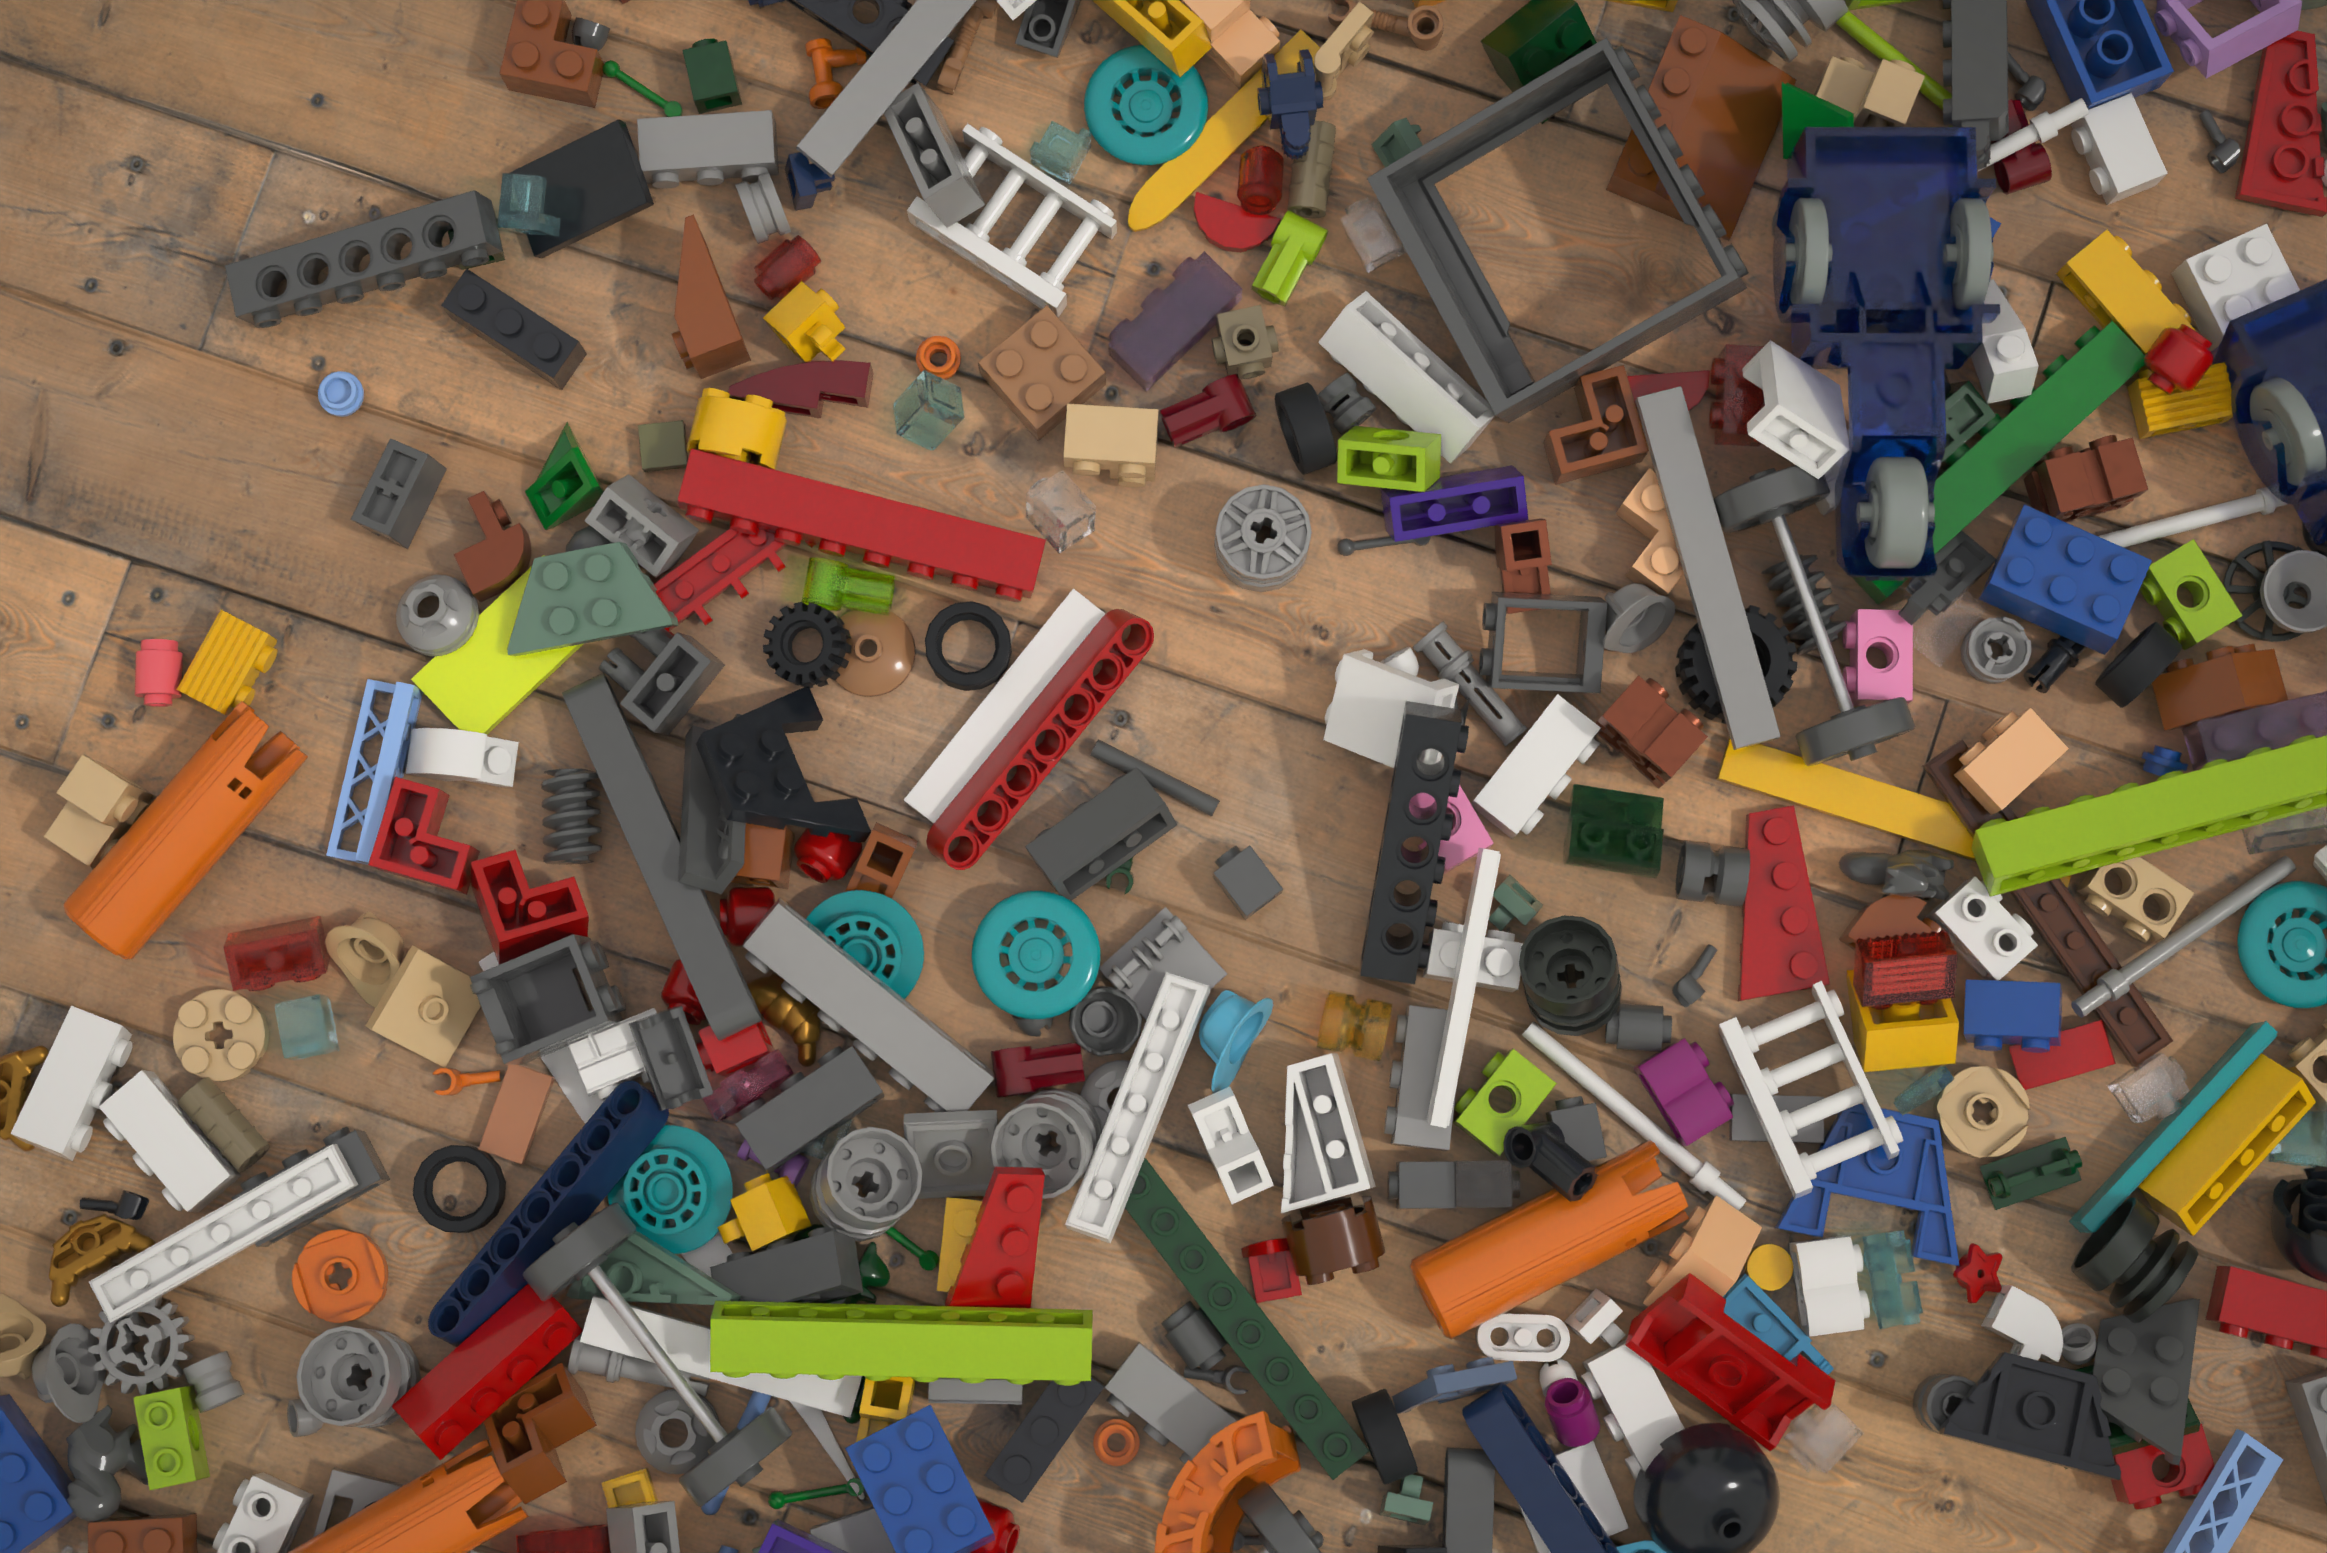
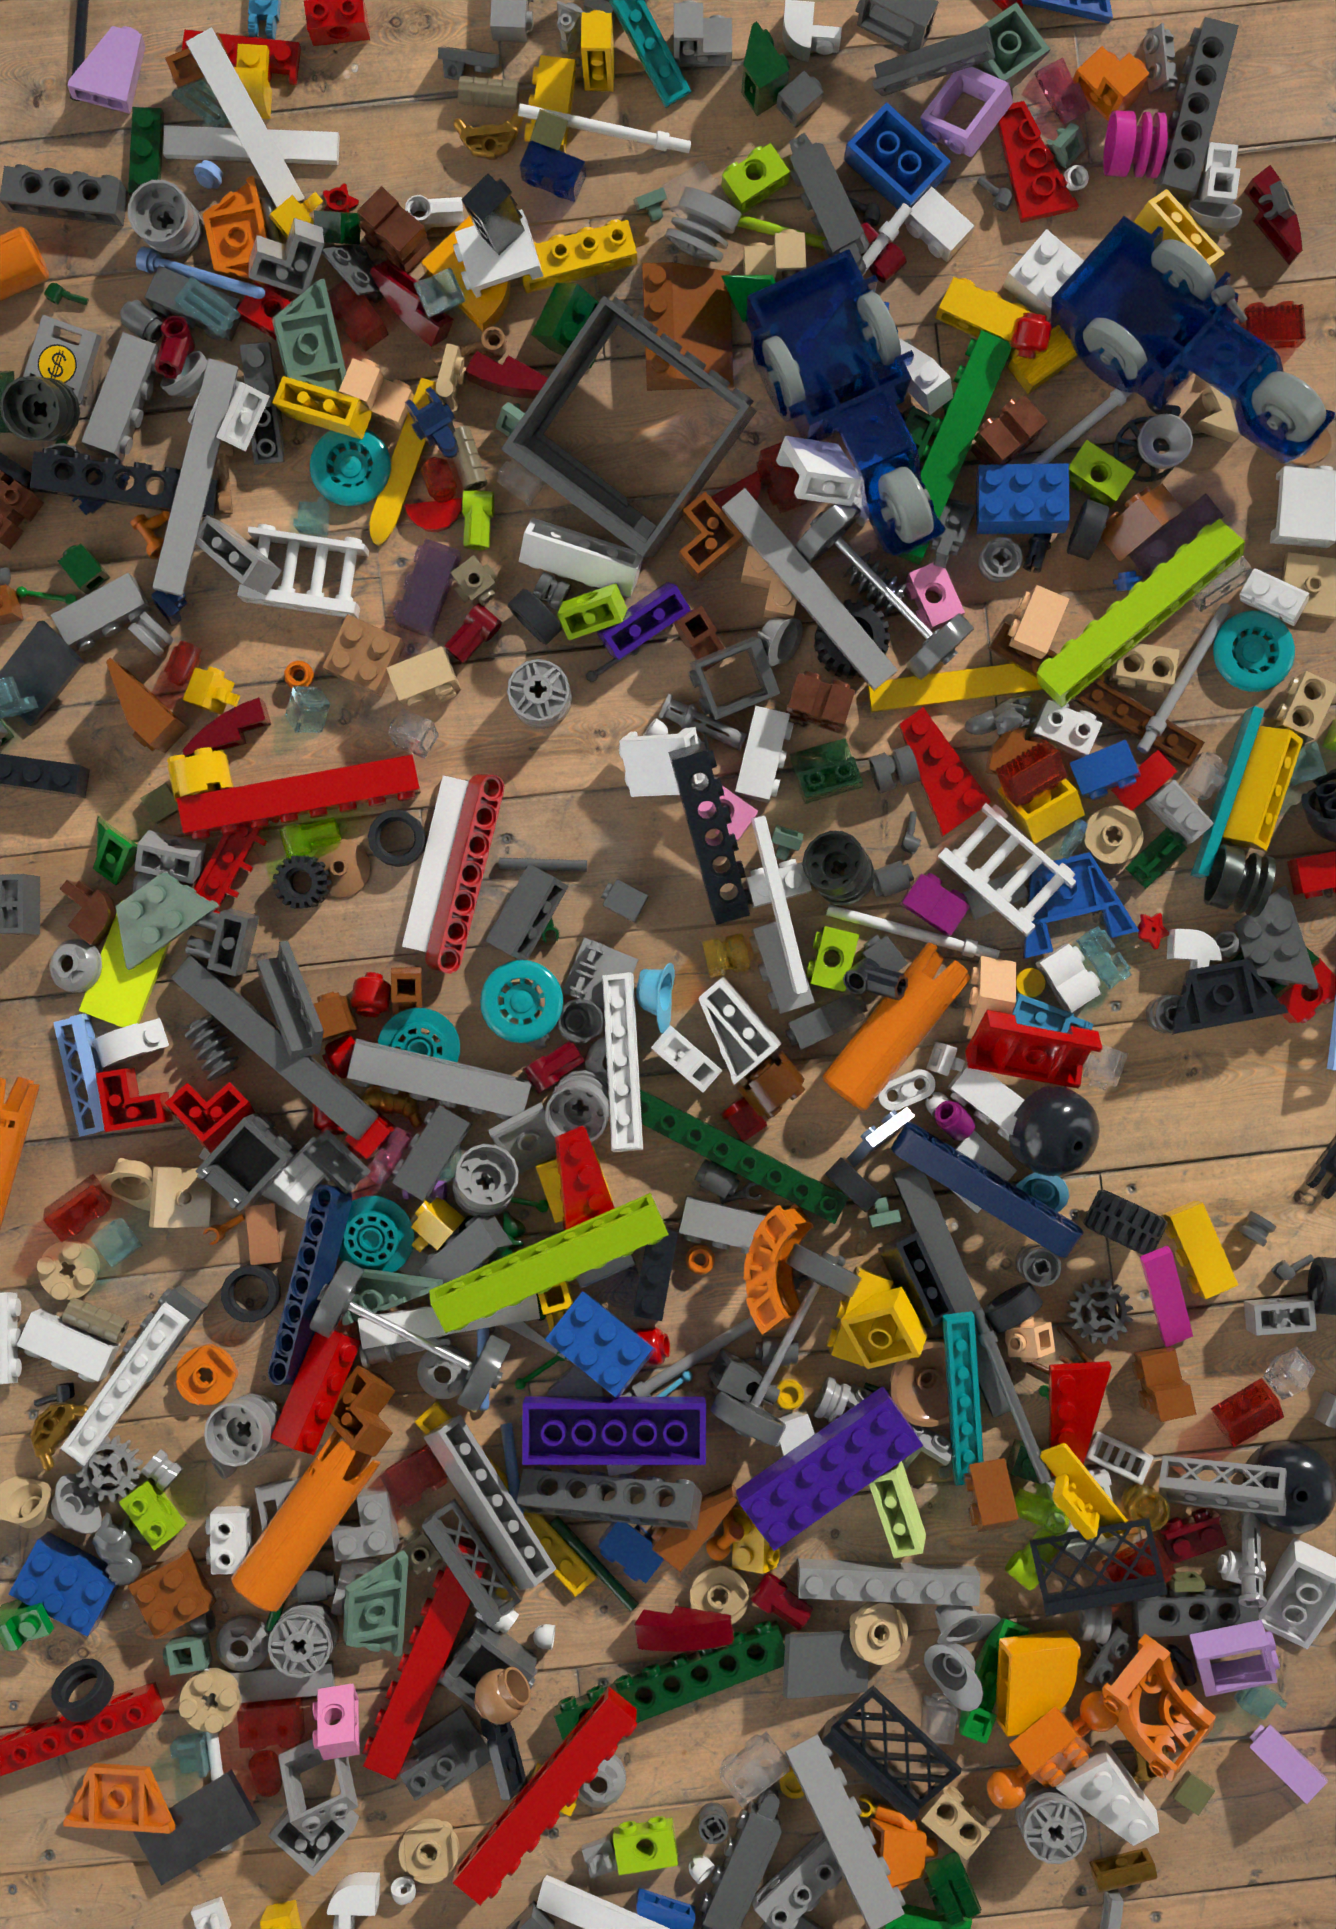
camera: 20 degrees left, 5 degrees up
(761, 778) = (310, 973): black wing -> none
(1421, 87) = (507, 379): none -> dark red slope
(2092, 1123) = (1179, 812): none -> light grey brick

